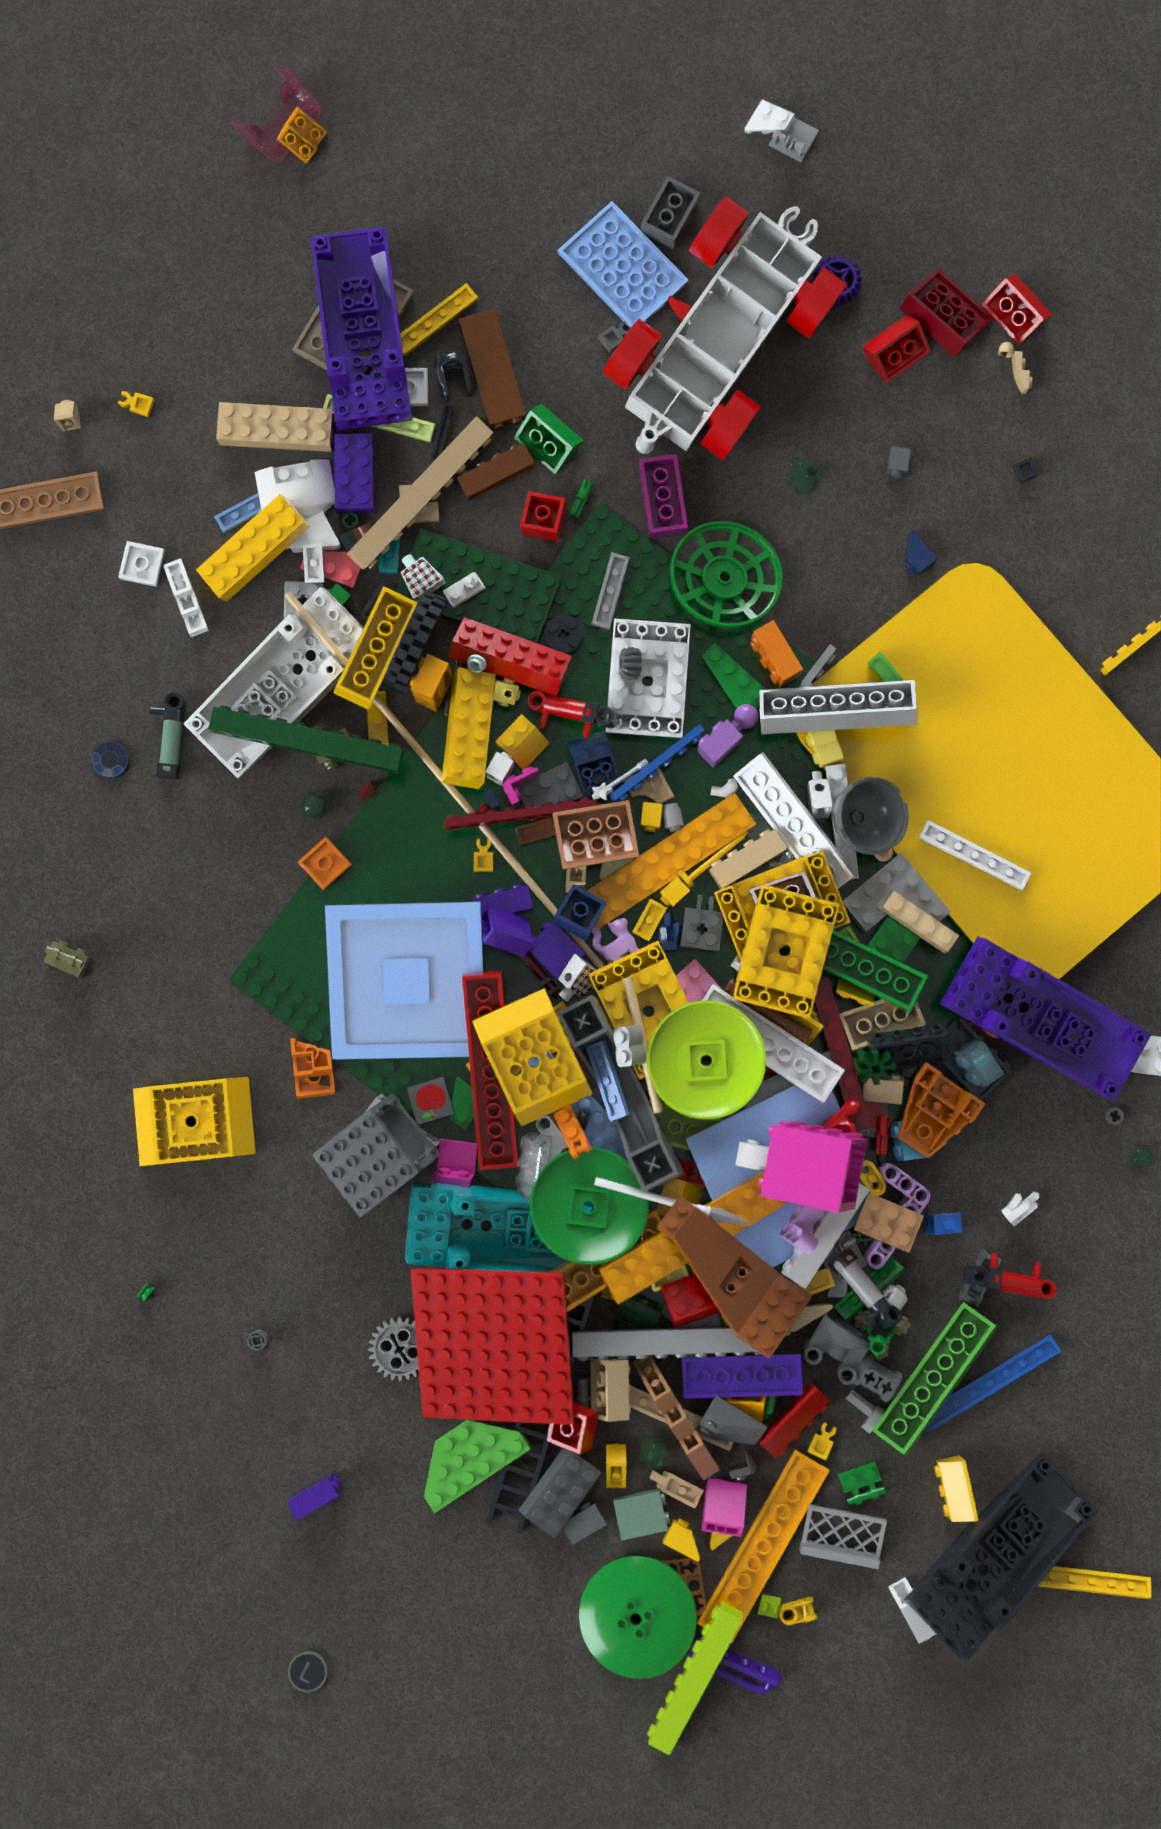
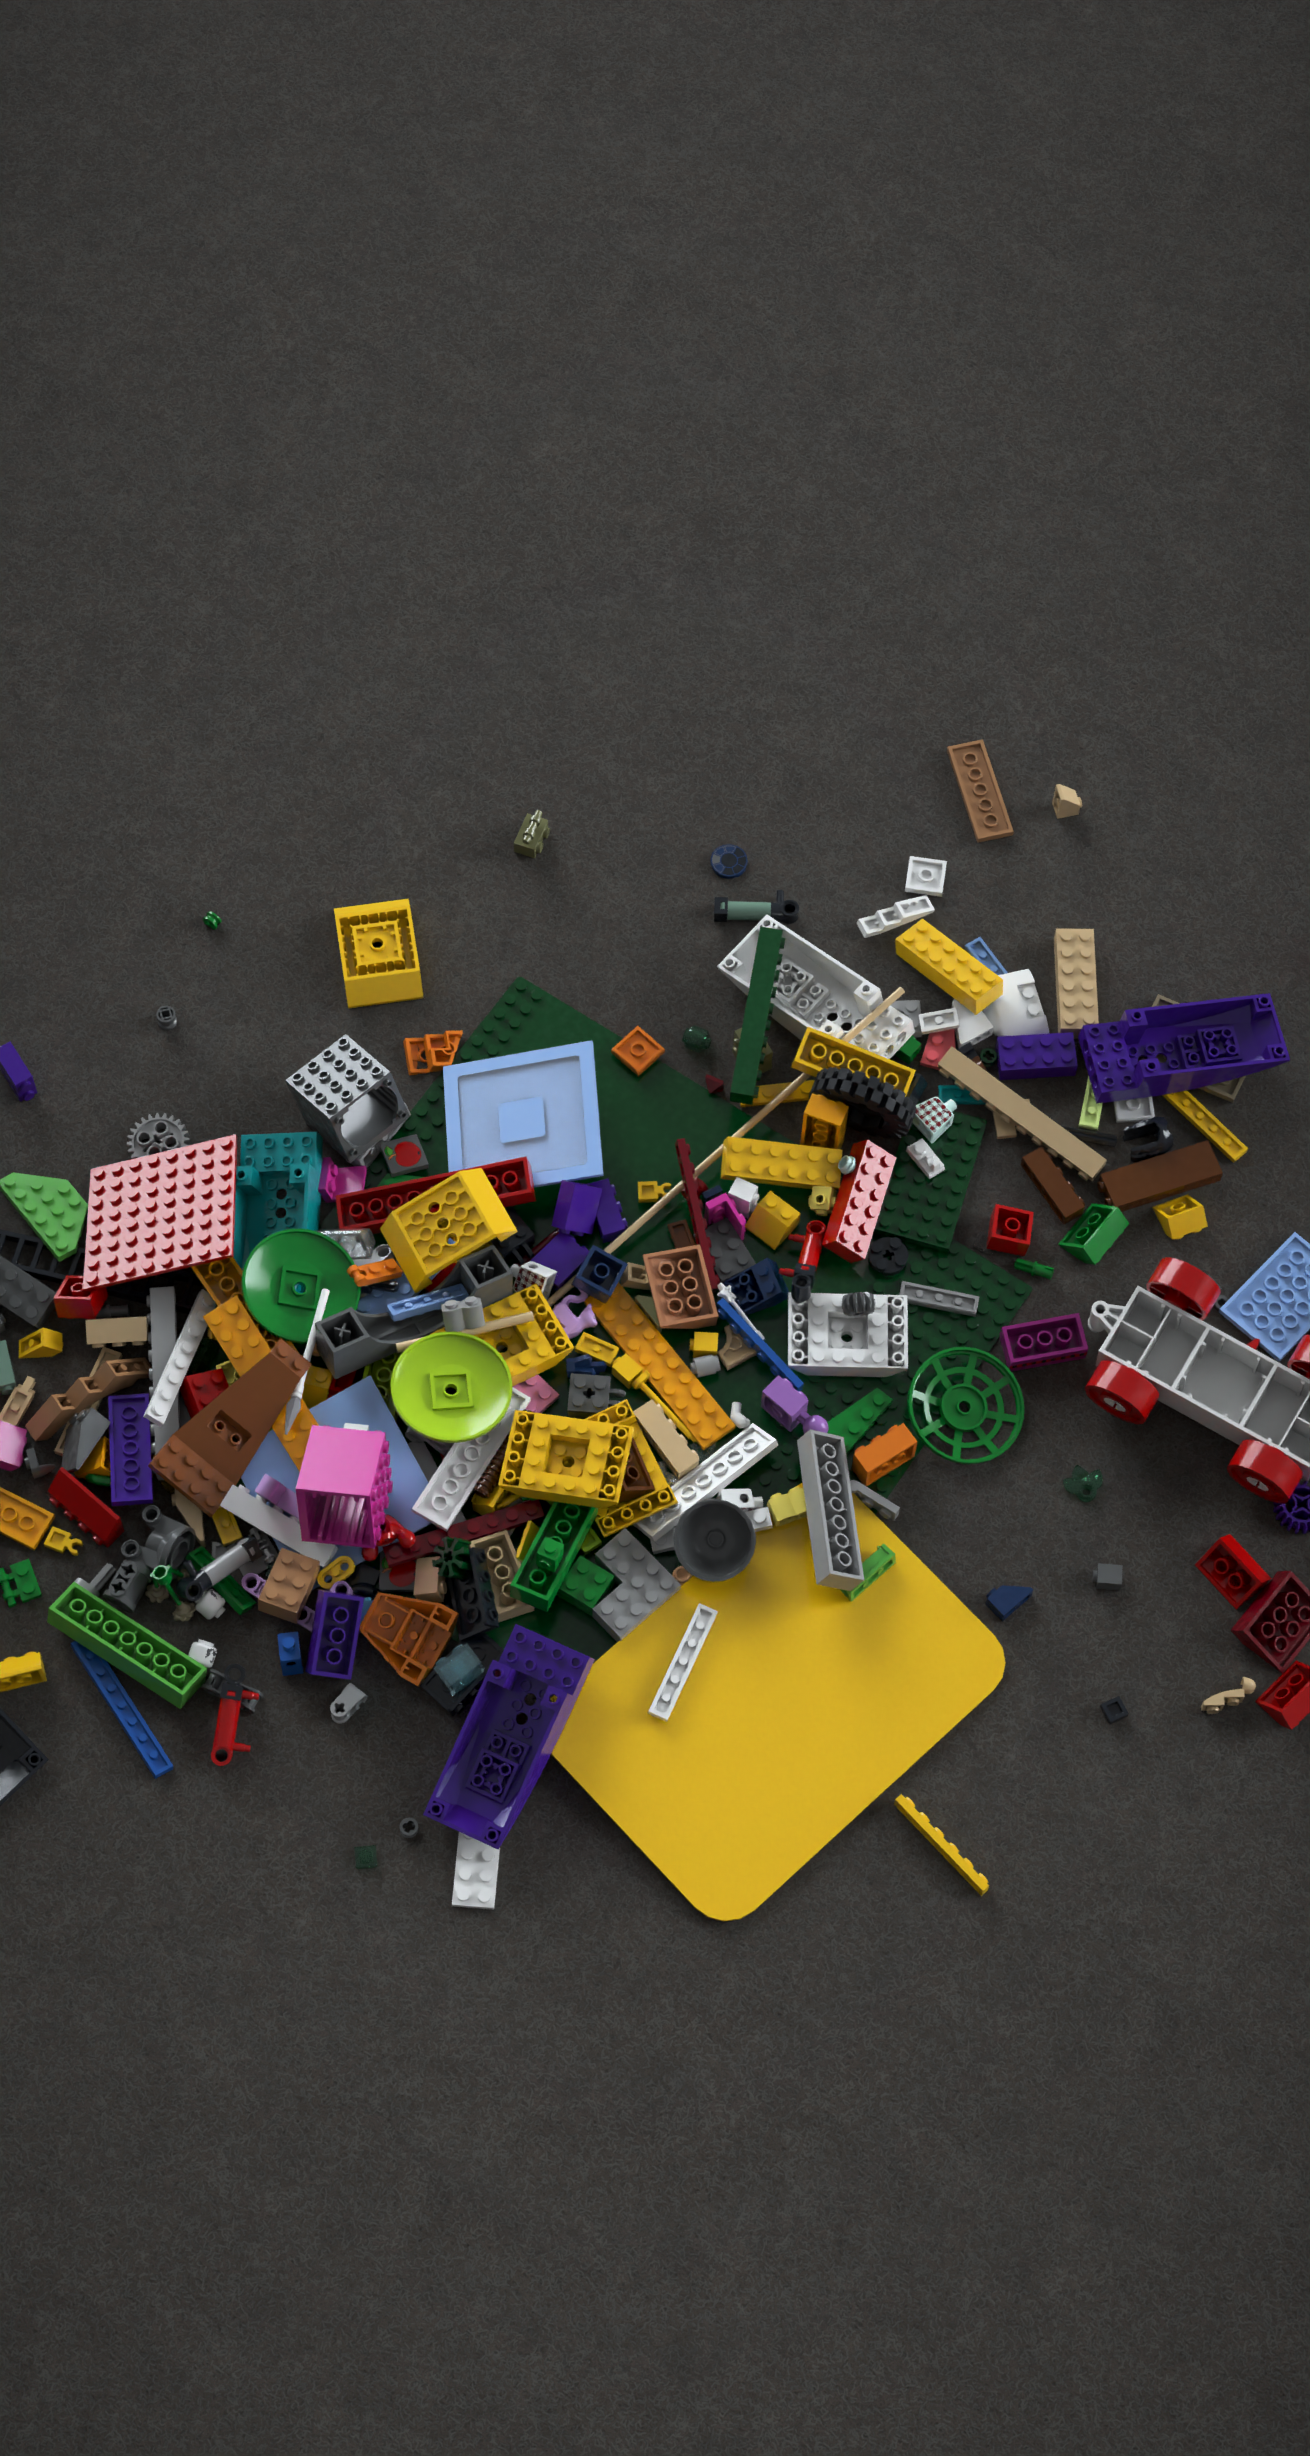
camera: 85 degrees right, 20 degrees down
(138, 404) = (1086, 864): yellow plate -> none
(534, 355) = (1181, 1216): none -> yellow slope
(653, 1450) = (55, 1376): clear green brick -> none
(654, 1327) = (179, 1360): none -> white plate
(882, 1135) = (381, 1581): red axle -> none
(885, 972) = (549, 1554): none -> green brick
(919, 922) = (605, 1598): tan brick -> none
(937, 1180) = (334, 1634): none -> dark purple brick
(942, 1306) = (203, 1653): none -> white head
(993, 1167) = (349, 1701): none -> light grey piece
(1018, 1209) = (306, 1728): white rock -> none

